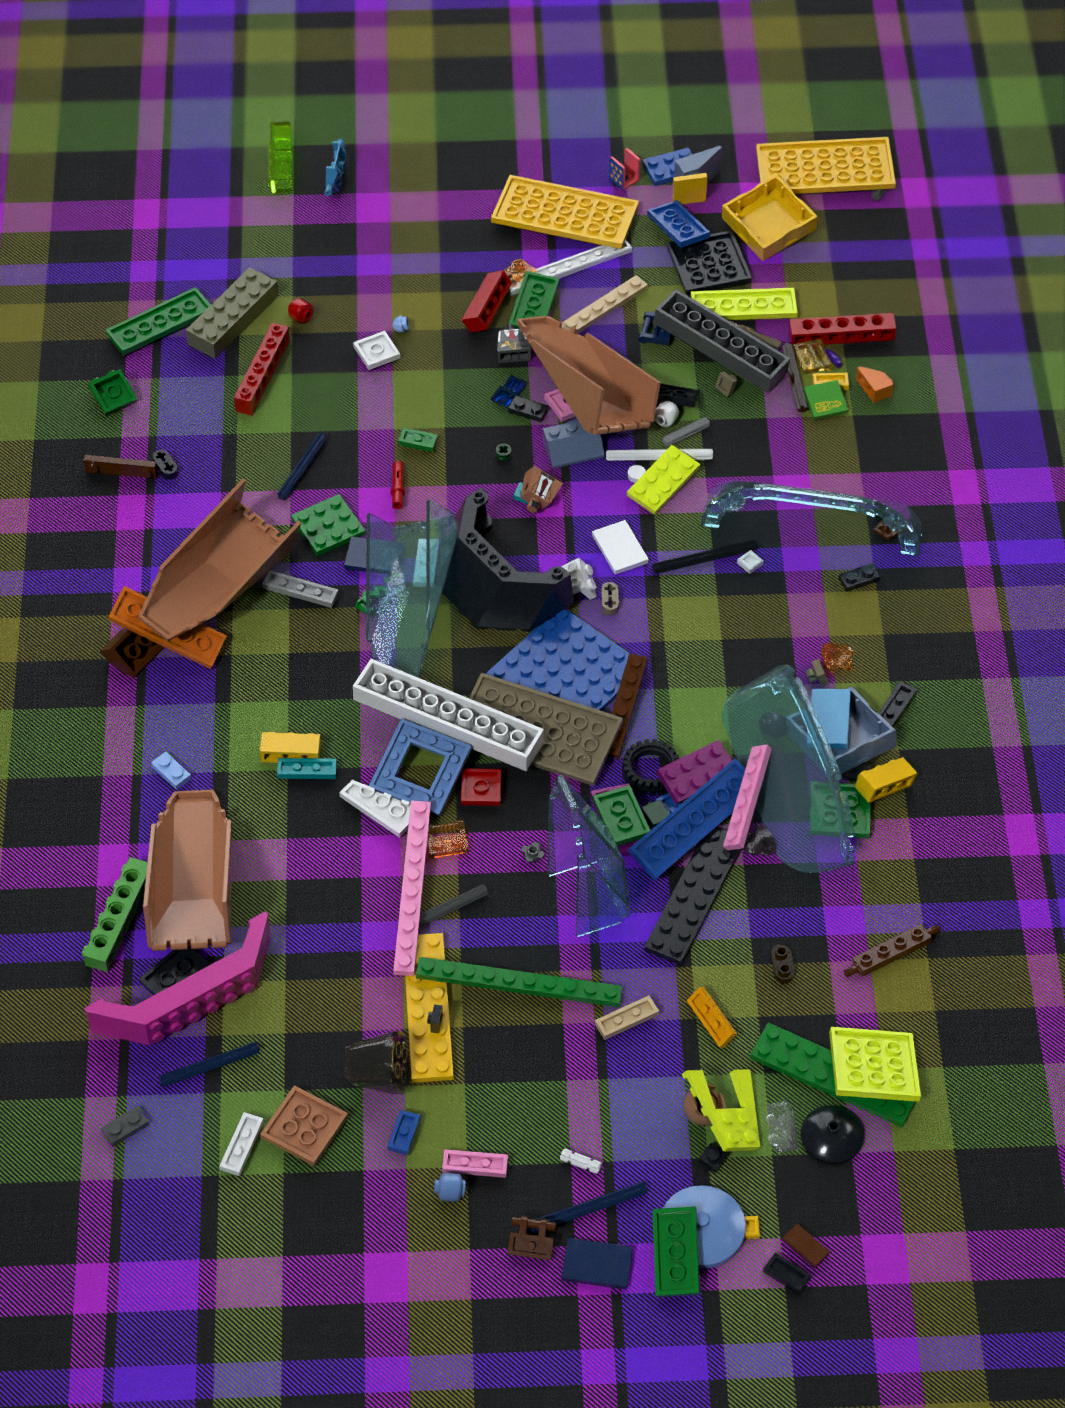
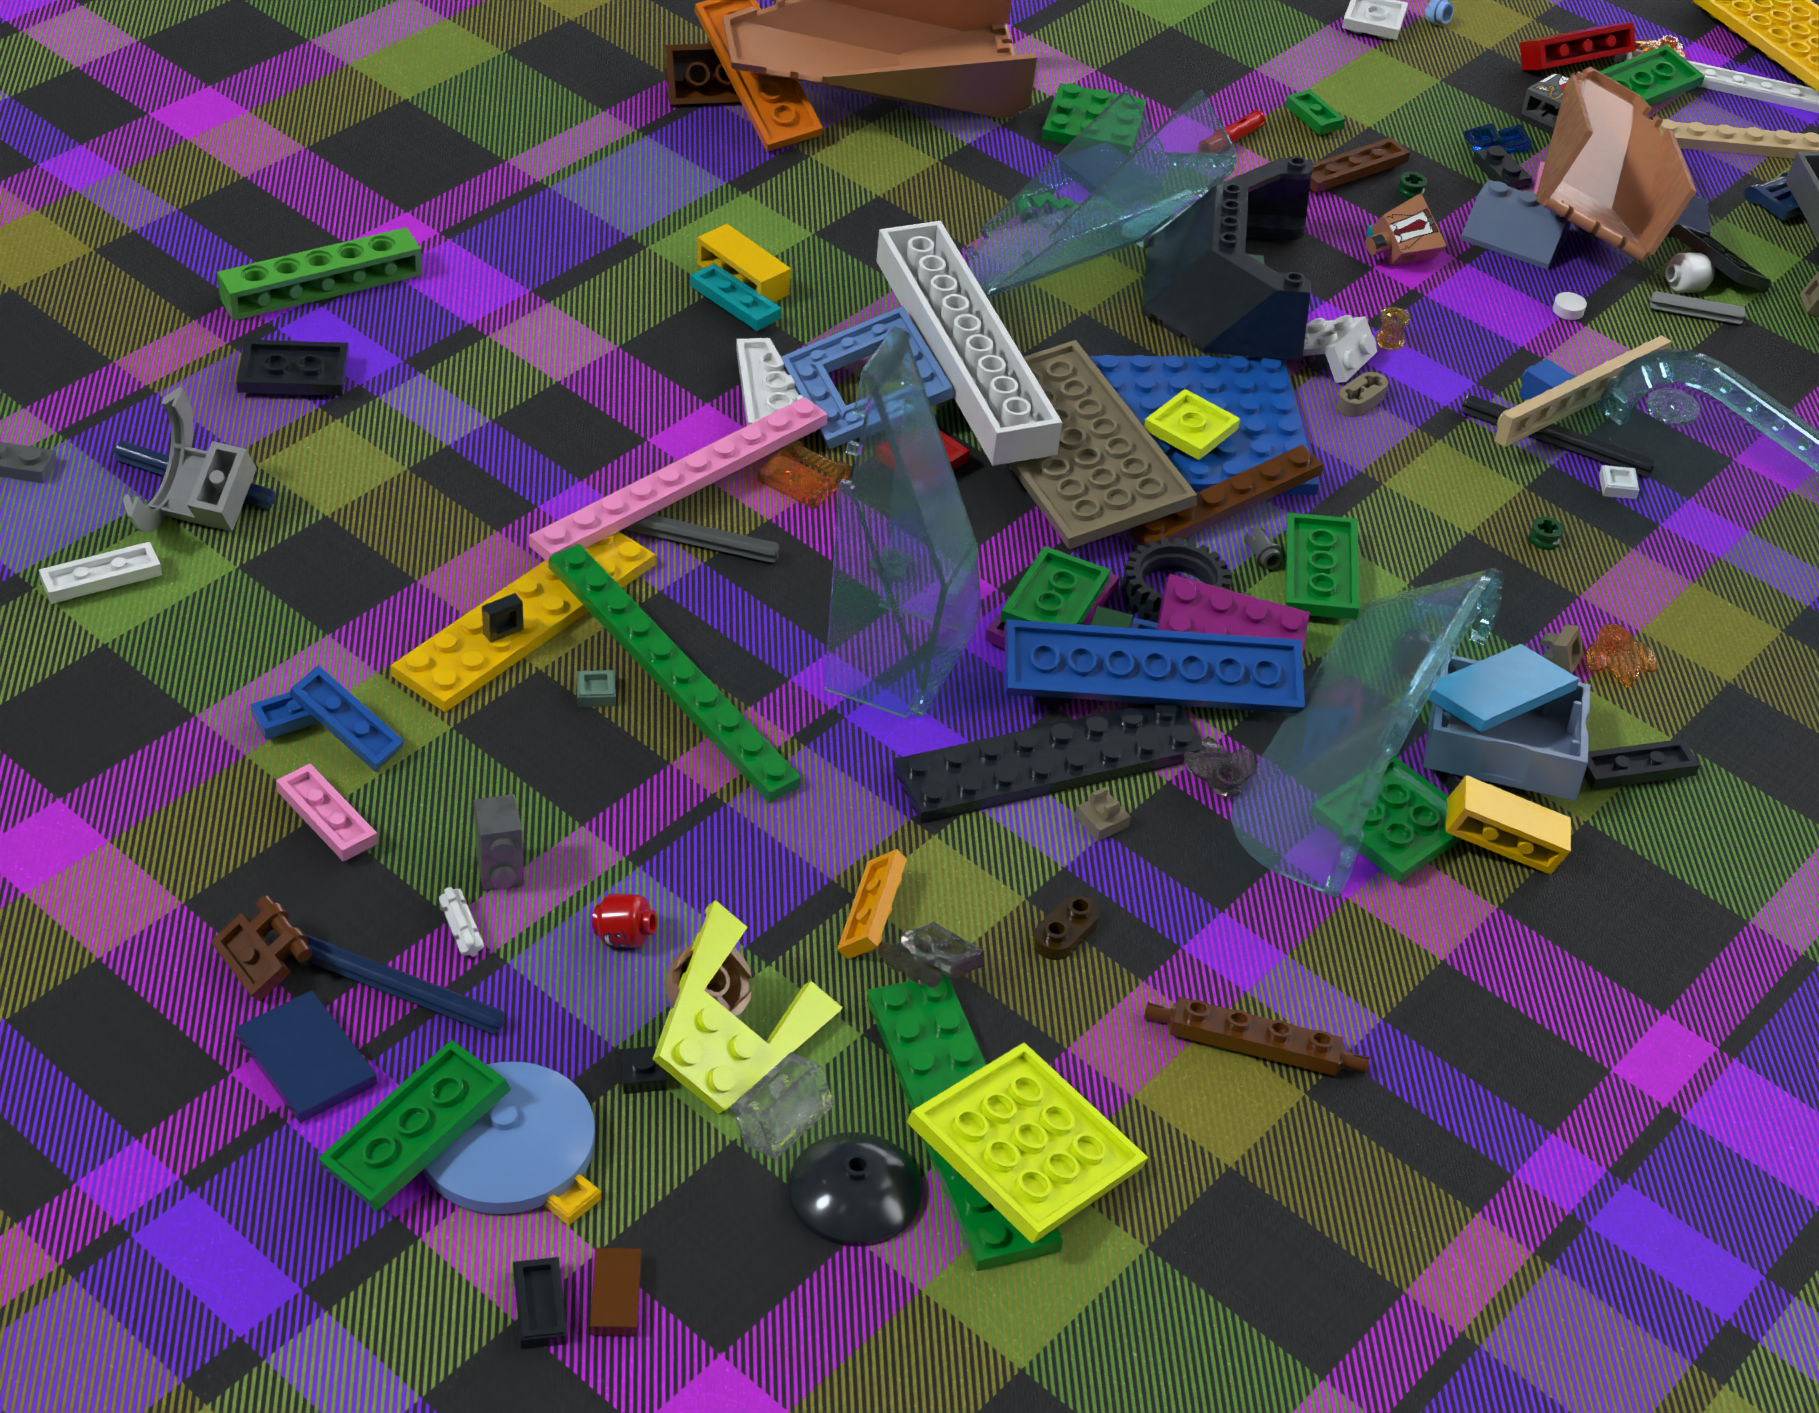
camera: 40 degrees right, 10 degrees down
(171, 770) = (583, 201): light blue plate -> none
(189, 874) = (420, 279): nougat windscreen -> none
(190, 998) = (291, 392): dark pink slope -> none
(228, 1067) = (197, 483): none -> light grey piece
(300, 588) = (974, 147): light grey plate -> none
(302, 466) = (1137, 55): dark blue axle -> none
(304, 1125) = (195, 611): nougat plate -> none
(379, 1063) = (368, 608): clear smoke cone -> none
(433, 1117) = (346, 718): none -> blue plate
(450, 1187) = (253, 807): medium blue head -> none
(468, 461) = (1357, 164): none -> reddish brown plate
(497, 1016) = (596, 688): none -> sand green tile
(562, 1117) = (498, 842): none -> flat silver brick
(574, 678) = (1191, 424): none -> neon yellow plate
(584, 552) = (1392, 328): none -> clear yellow bush
(620, 547) = (1447, 357): white tile -> none
(626, 1017) = (757, 815): tan plate -> none
(639, 1106) = (624, 921): none -> red head
(654, 454) = (1628, 307): white axle -> none
(661, 718) = (1267, 553): none -> dark grey pin
(663, 479) = (1595, 327): neon yellow plate -> none
(676, 532) = (1541, 378): none -> blue brick
(692, 708) = (1322, 565): none -> green plate
(695, 529) = (1567, 397): none -> tan plate
(741, 903) = (1102, 815): none -> dark tan tile
(747, 797) = (1249, 696): bright pink plate -> none
(751, 610) = (1546, 533): none -> dark green bush
(758, 1014) = (930, 951): none -> clear smoke plate
(859, 577) = (1770, 597): black plate -> none

